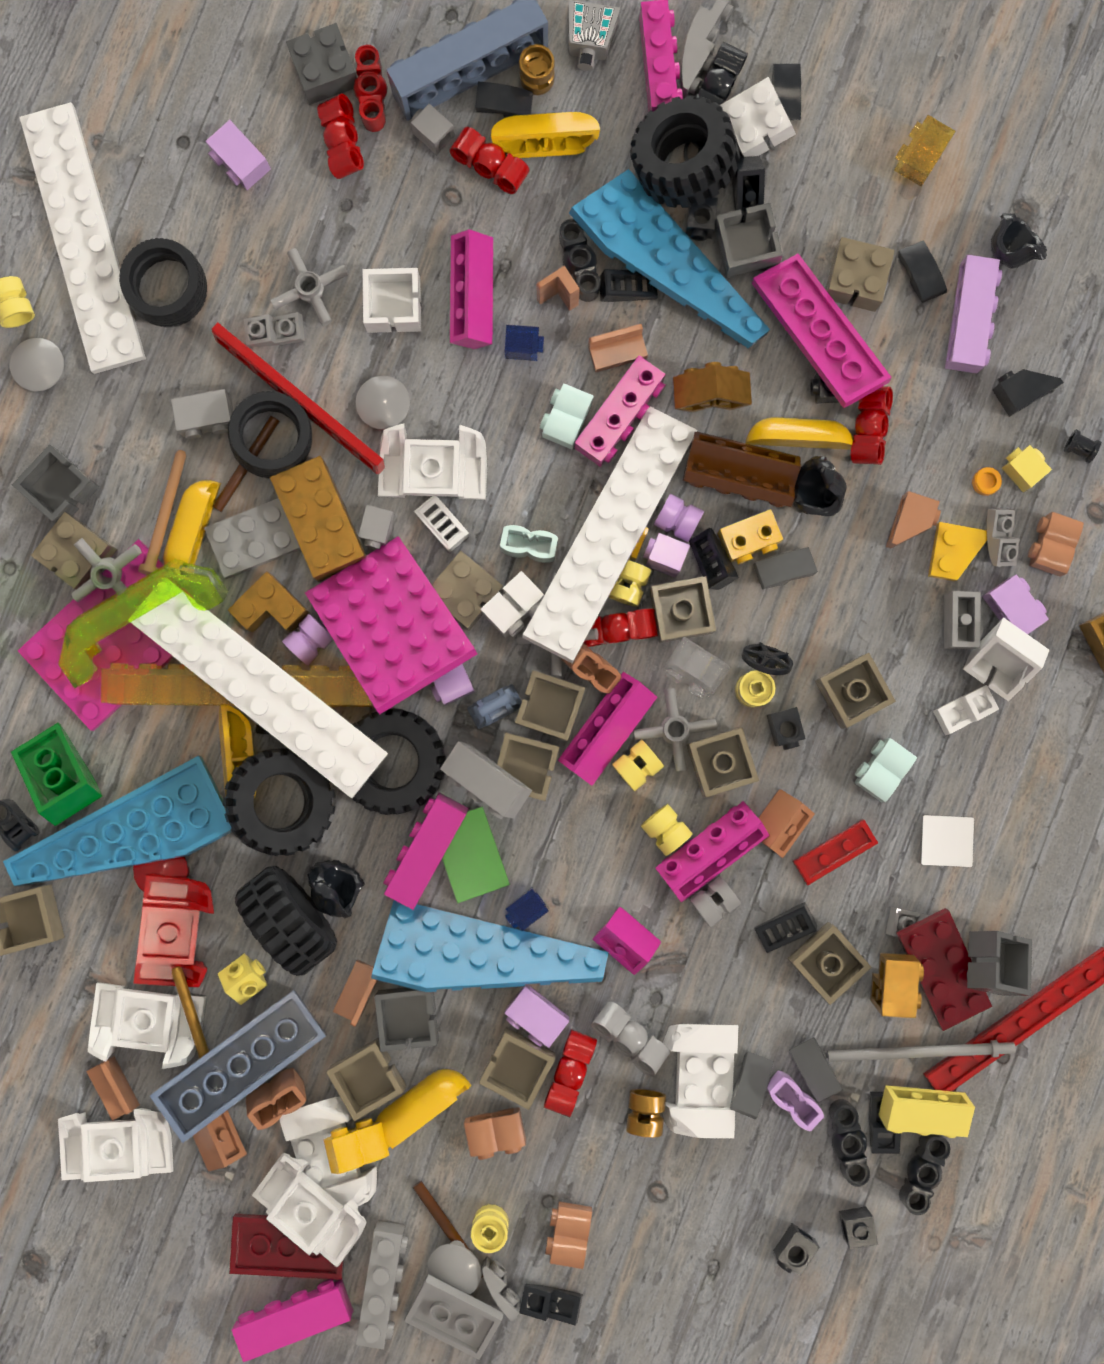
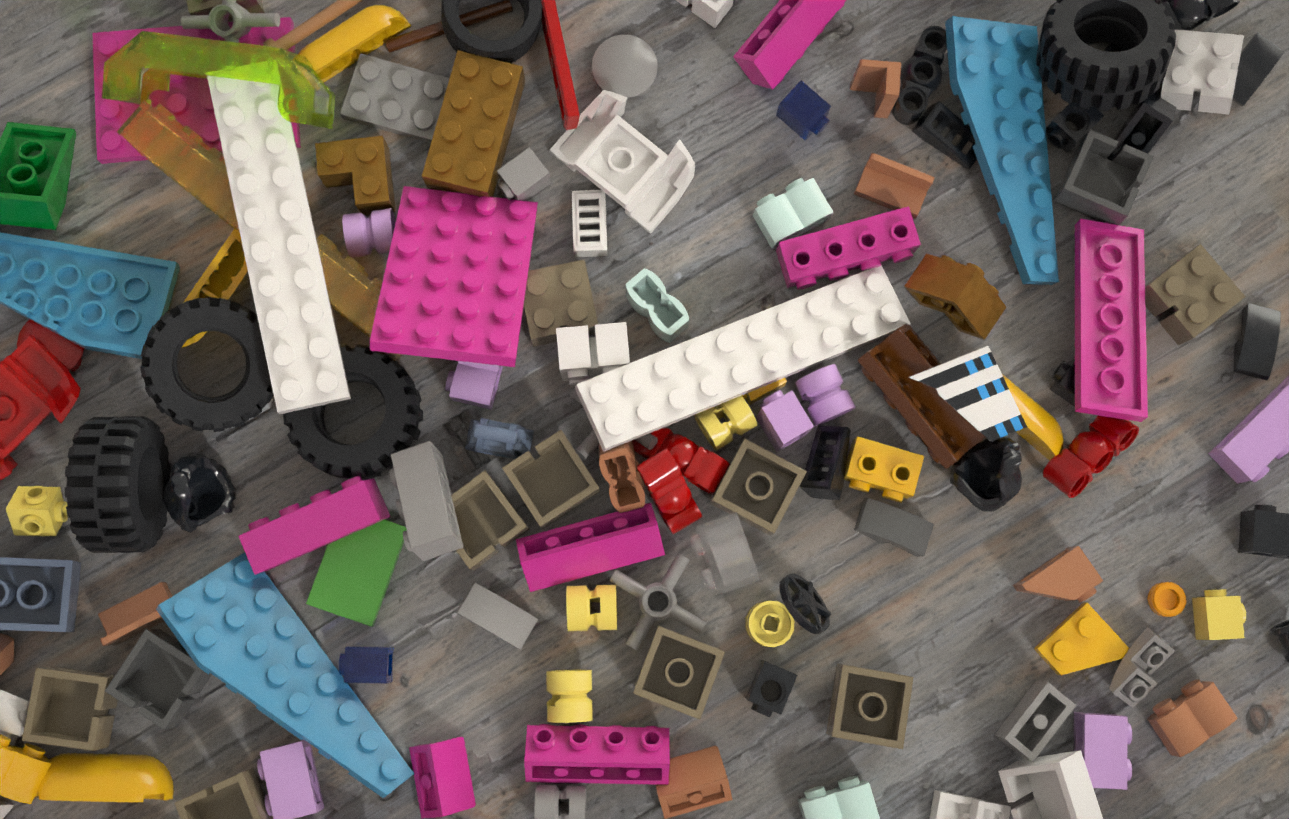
camera: 35 degrees right, 5 degrees down
(582, 816) = (496, 615): none -> light grey slope
(630, 655) = (669, 491): none -> red piece
(773, 442) = (976, 392): none -> sticker

